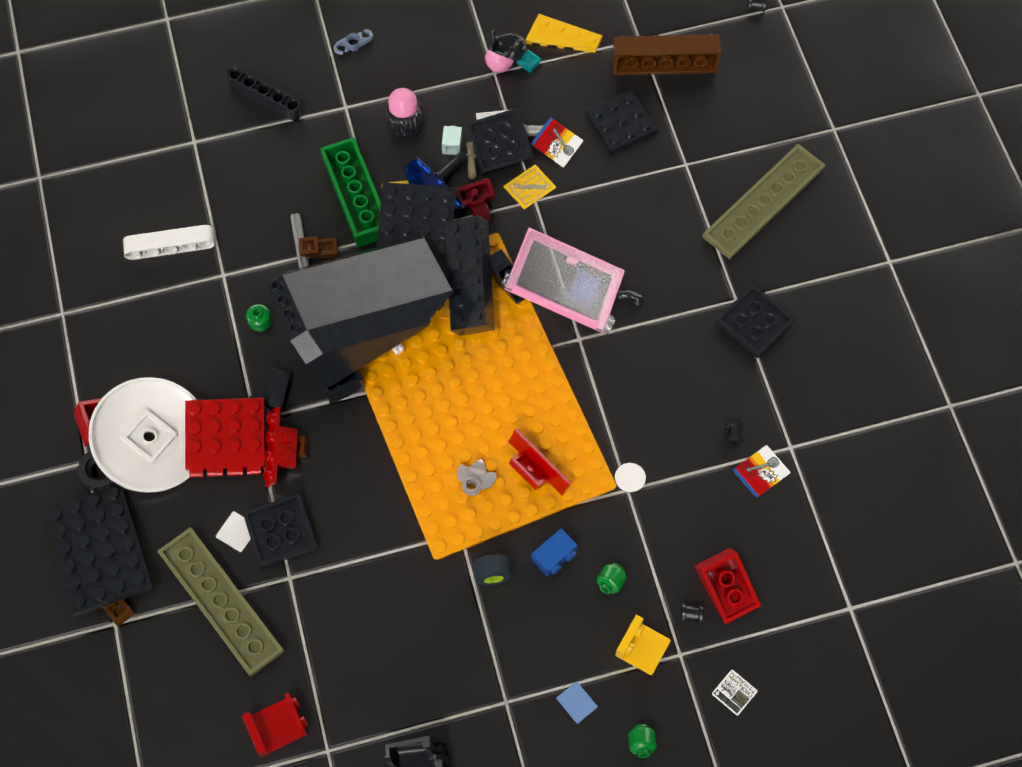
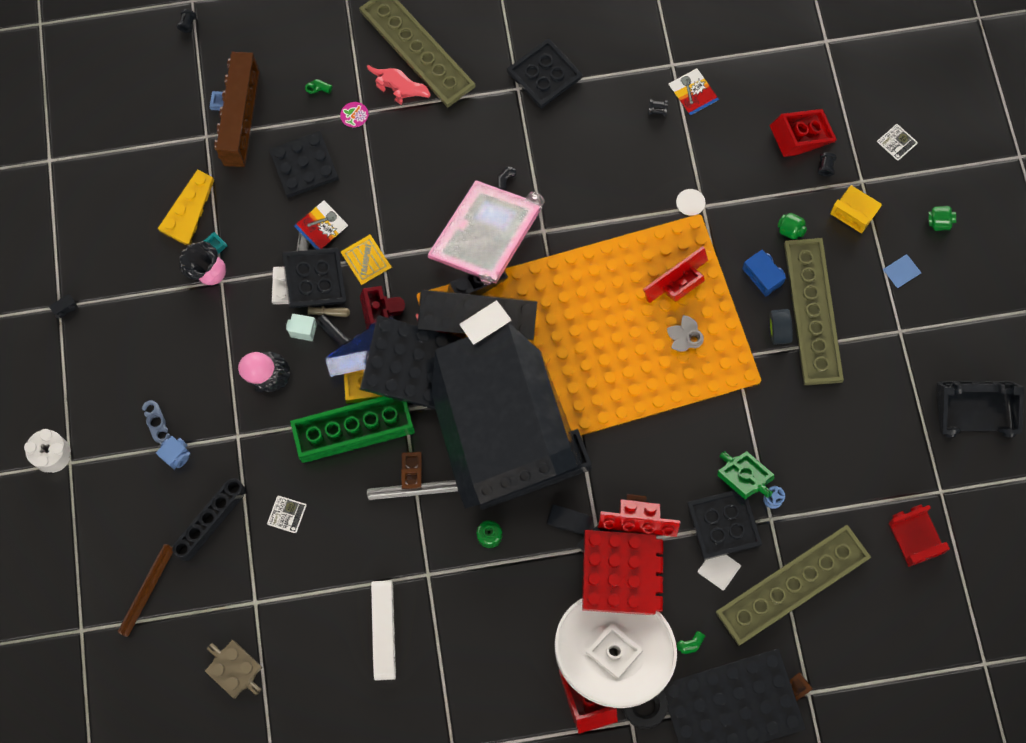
camera: 80 degrees left, 5 degrees up
(133, 132) = (233, 669): none -> dark tan plate
(158, 510) = (692, 645): none -> green arm
(199, 57) = (145, 590): none -> reddish brown axle
(275, 155) = (286, 514): none -> sticker
(307, 573) = (778, 494): none -> medium blue wheel
(324, 57) = (174, 452): none -> medium blue brick
(329, 545) = (745, 475): none -> green plate
(452, 274) = (485, 322): none -> white sticker
(517, 606) = (813, 312): none -> olive plate
(682, 157) = (354, 114): none -> sticker
(706, 120) = (318, 85): none -> green arm
(721, 189) = (399, 82): none -> coral animal

